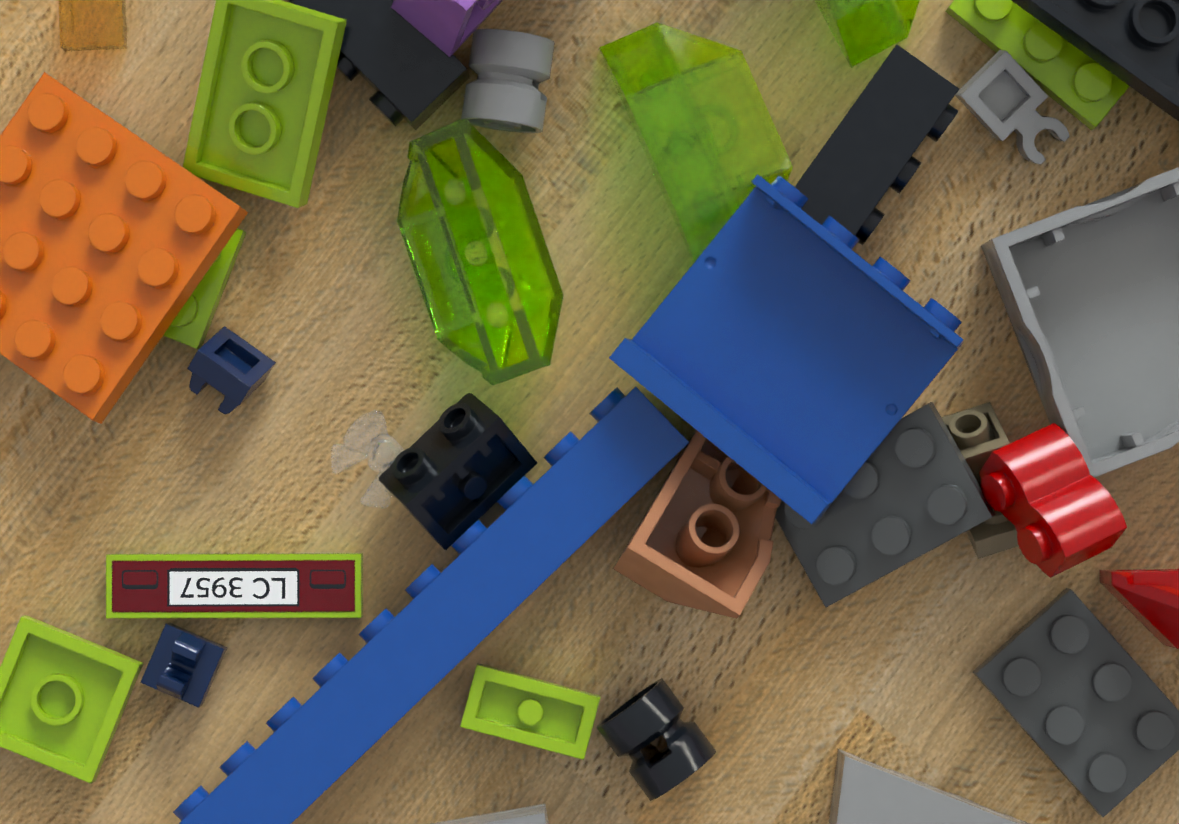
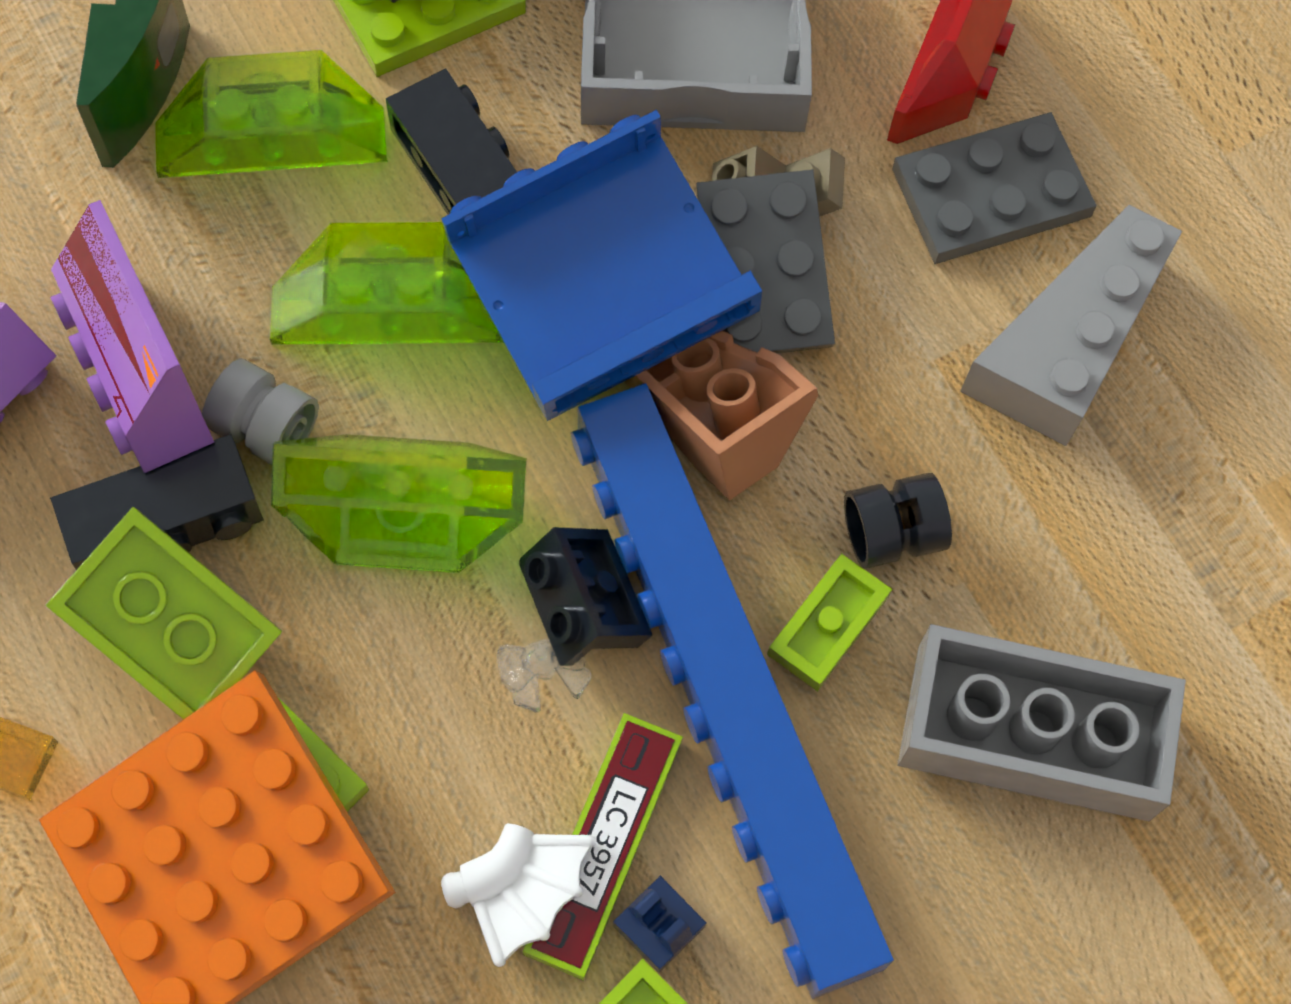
camera: 70 degrees left, 20 degrees down
(161, 527) = (519, 886): none -> white arm
(230, 368) = (399, 756): dark blue tile -> none
(1006, 102) = (476, 54): light grey plate -> none
(1051, 500) = (817, 122): red brick -> none

